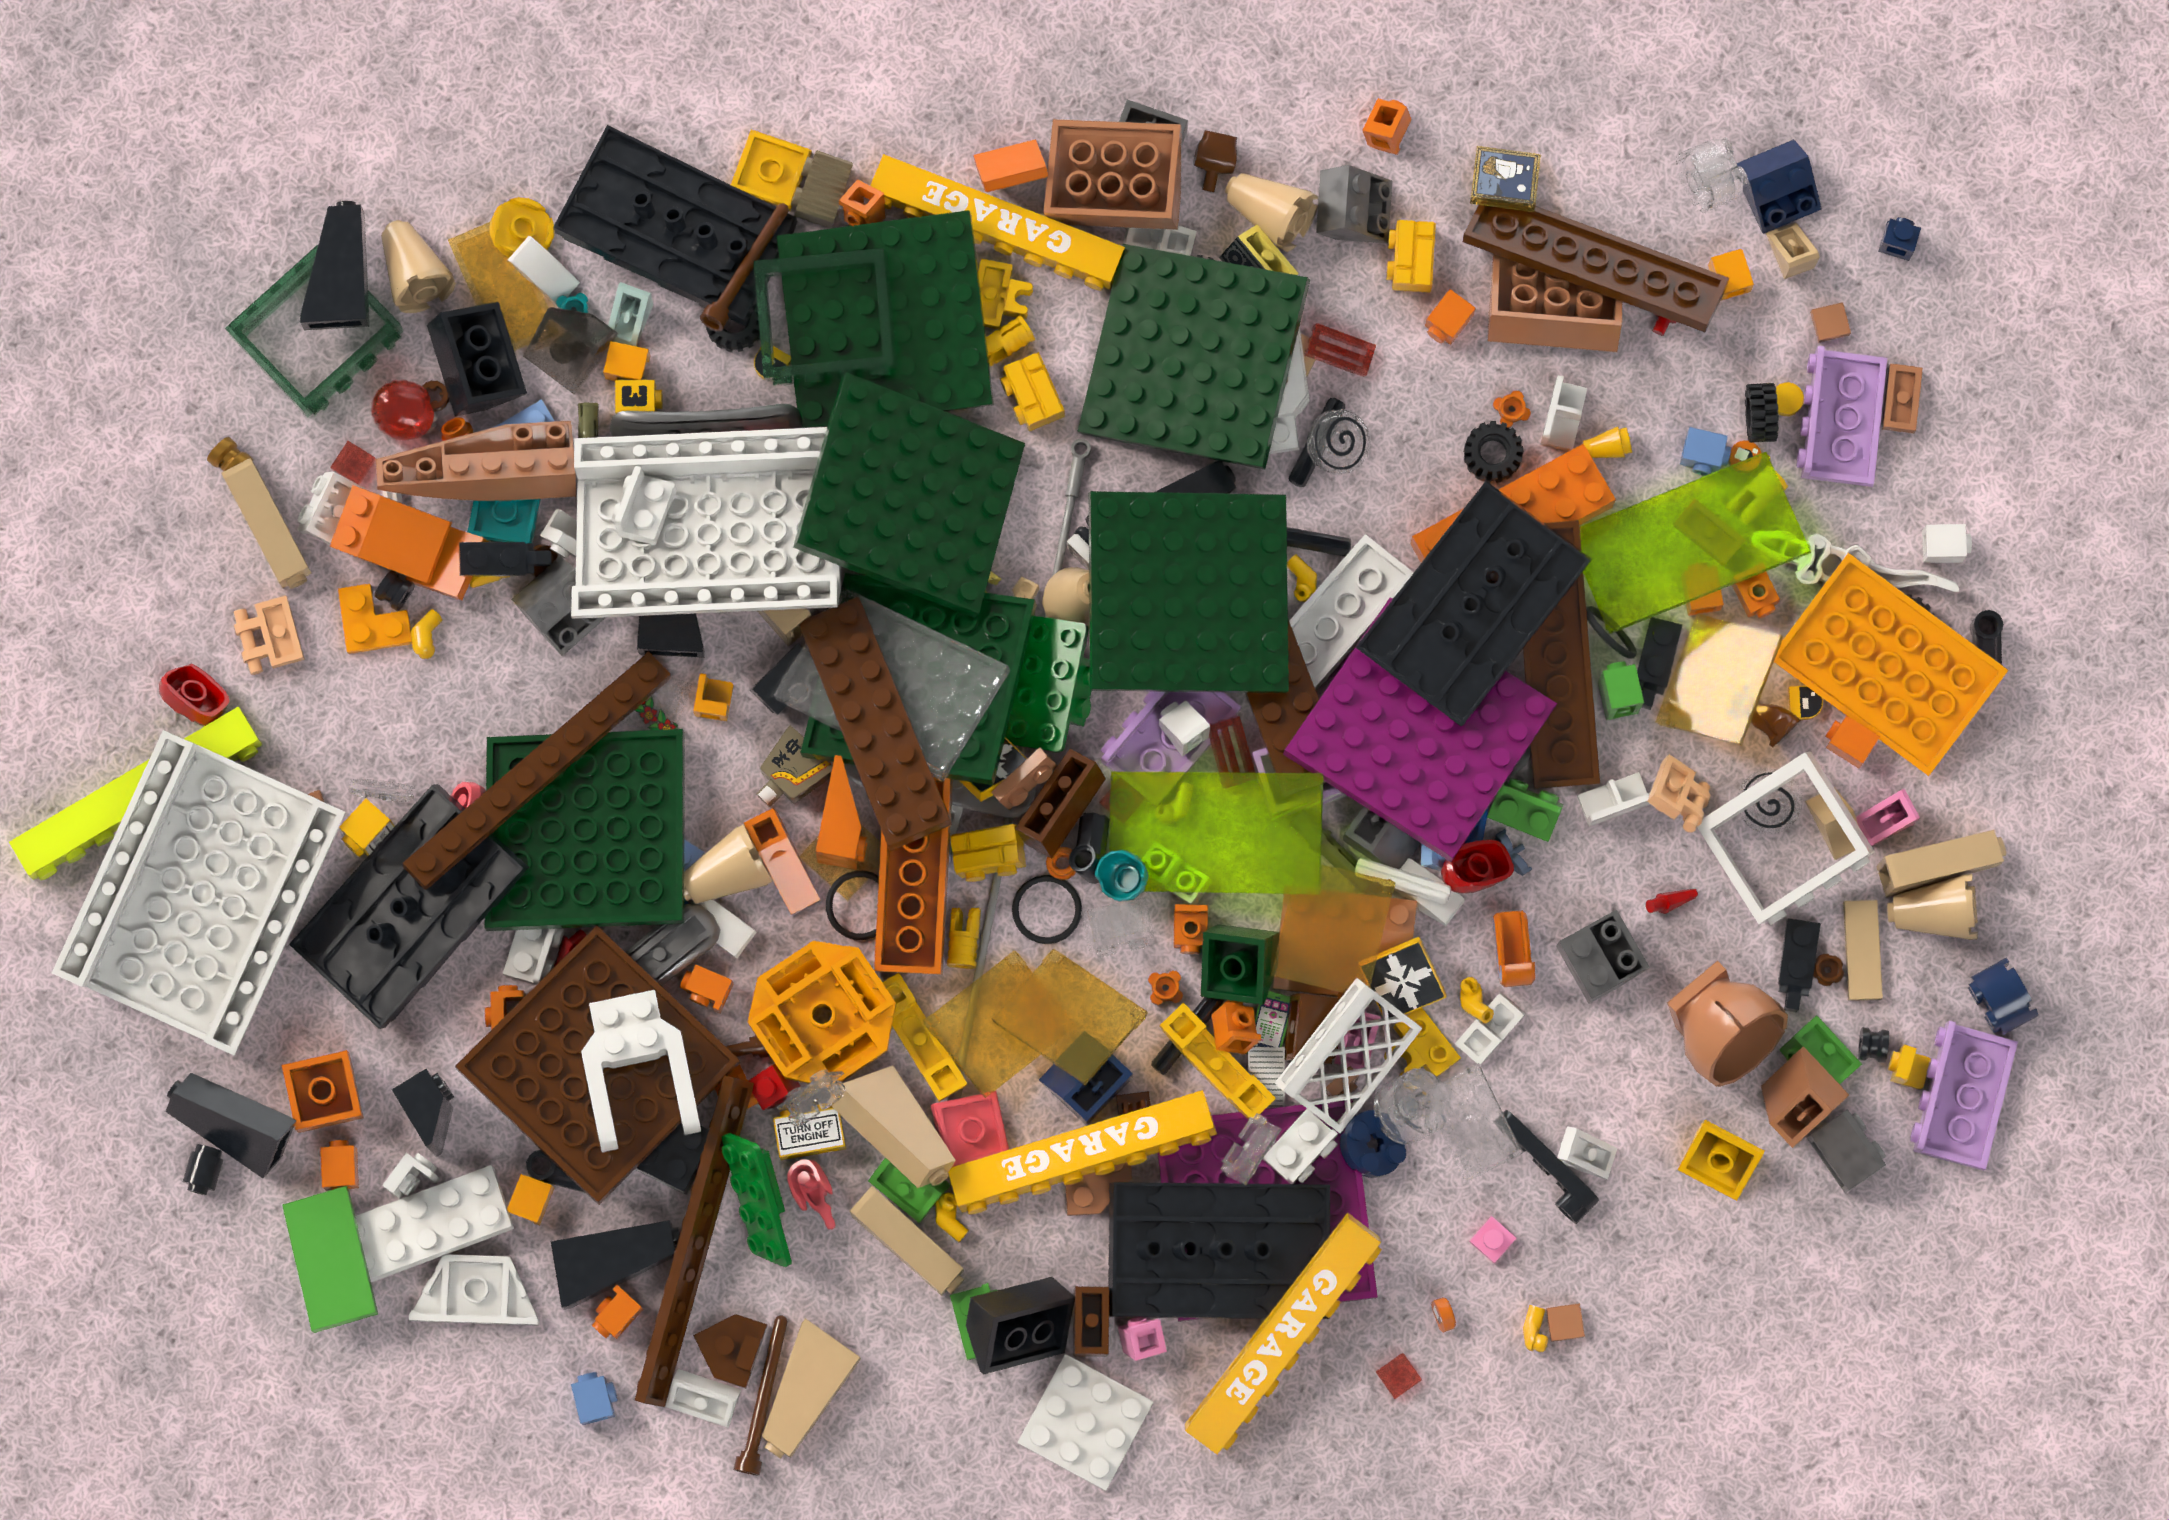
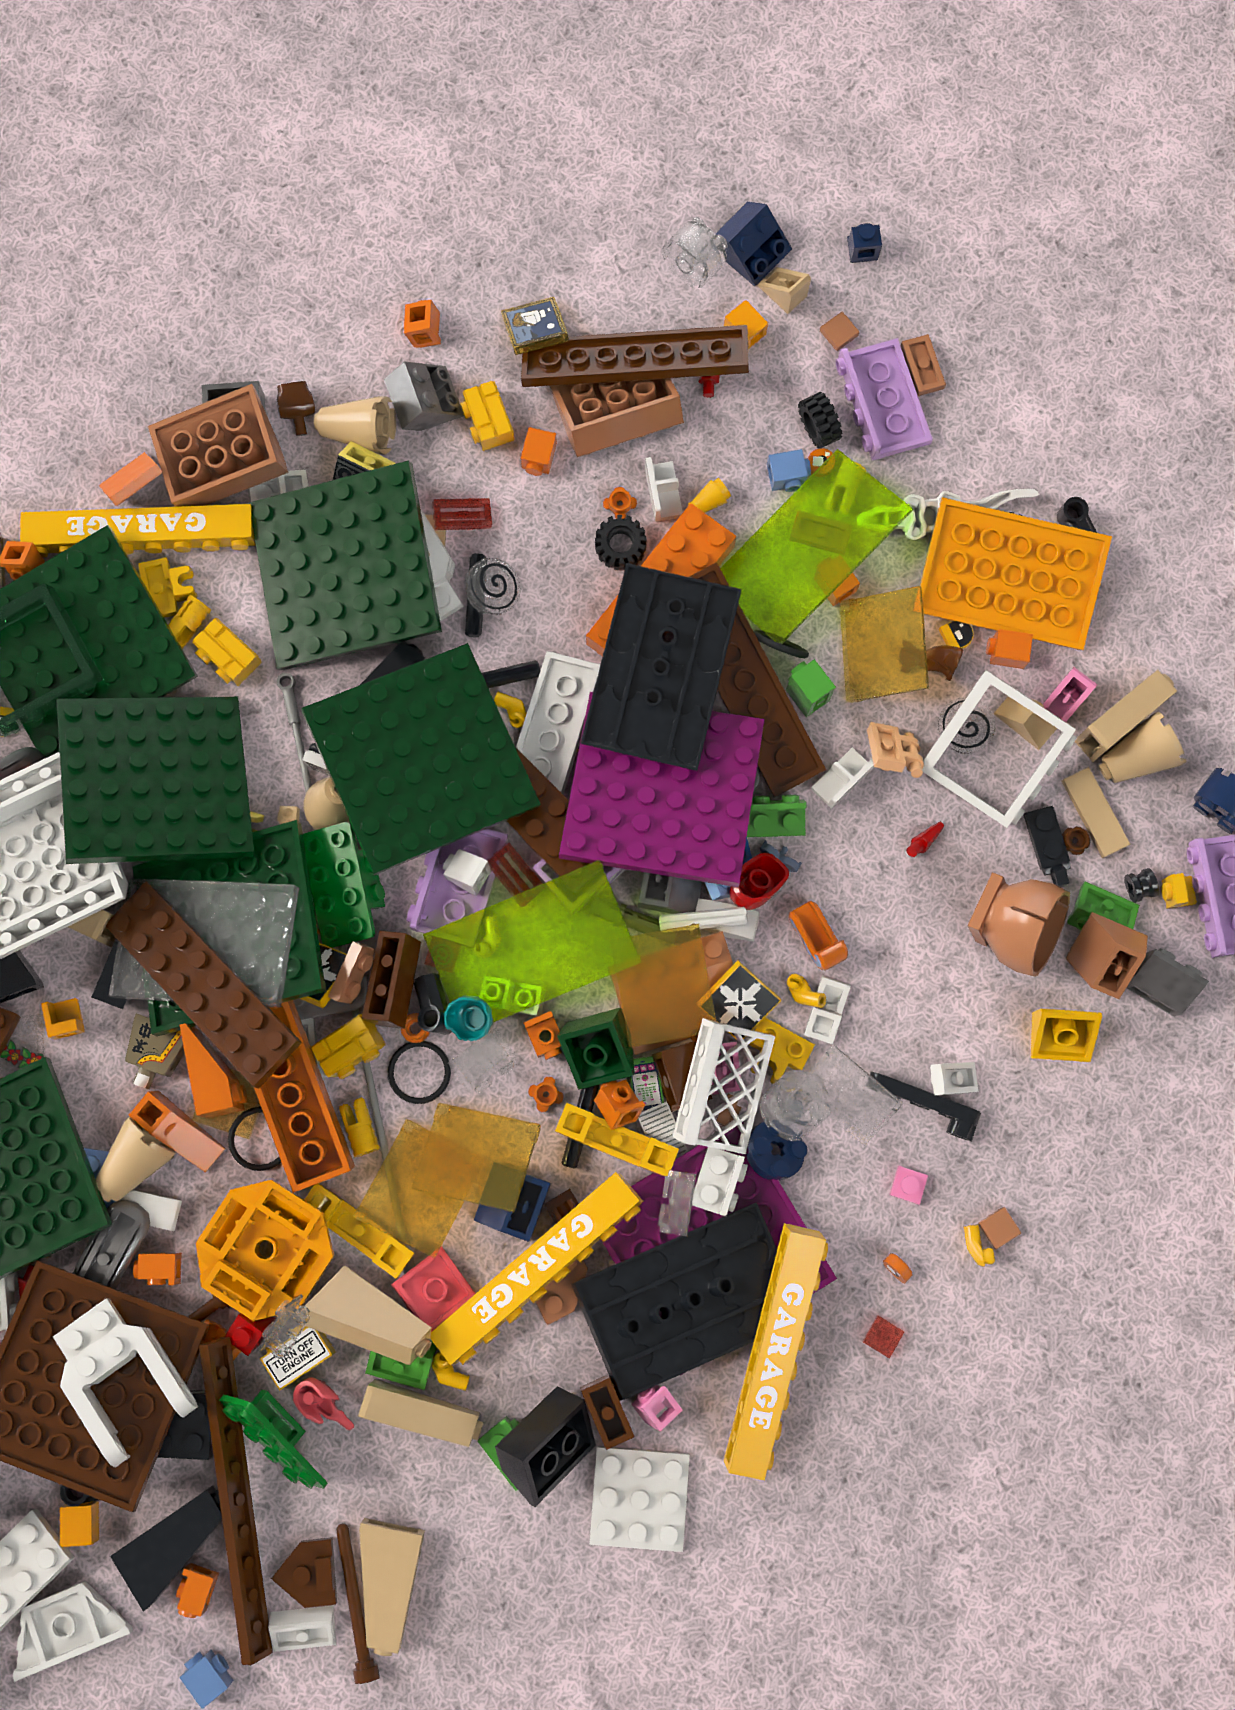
camera: 25 degrees left, 0 degrees up
(1602, 956) = (893, 910): flat silver slope -> none
(1657, 658) = (825, 647): black hinge -> none
(1757, 605) = (877, 572): orange brick -> none
(1789, 398) = (838, 400): yellow tile -> none
(1945, 543) = (1009, 462): white brick -> none

